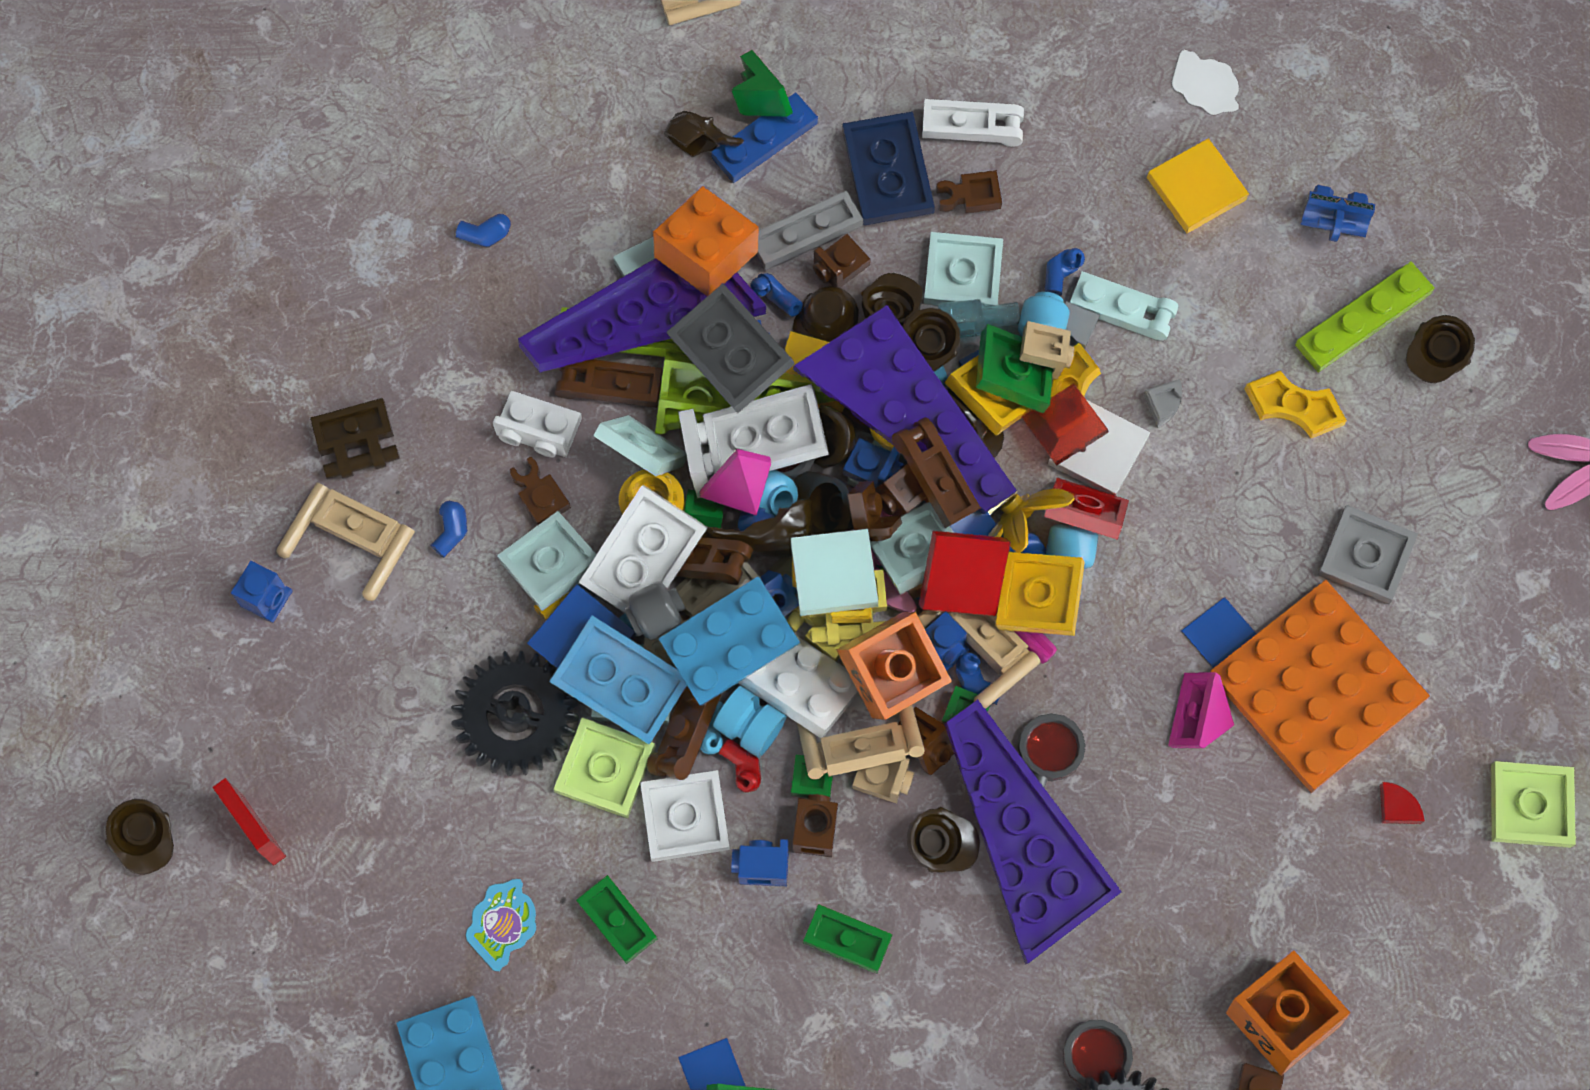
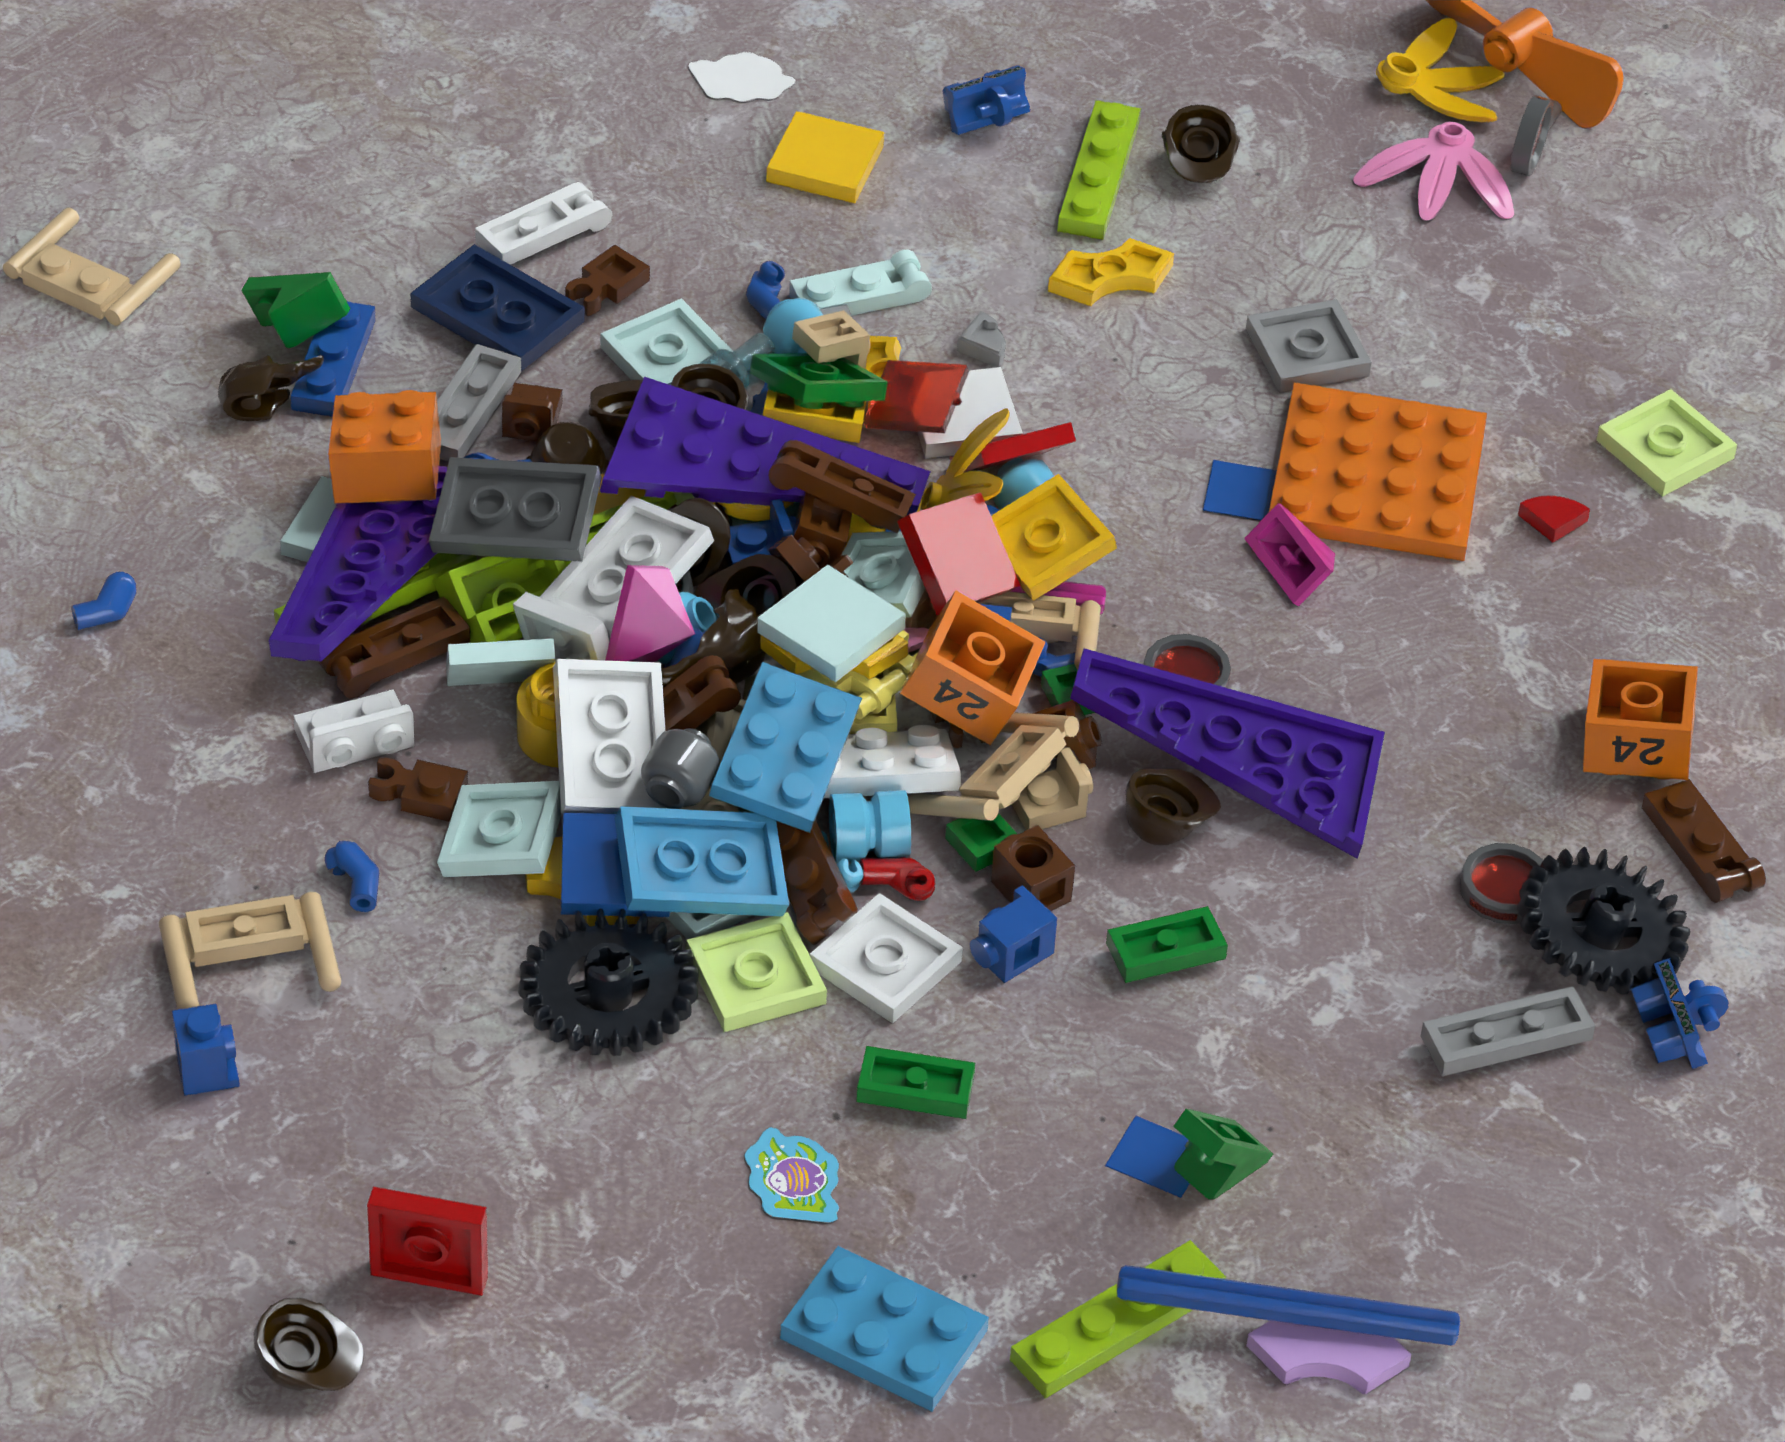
camera: 45 degrees left, 25 degrees down
(352, 428) = (148, 849): dark brown plate -> none

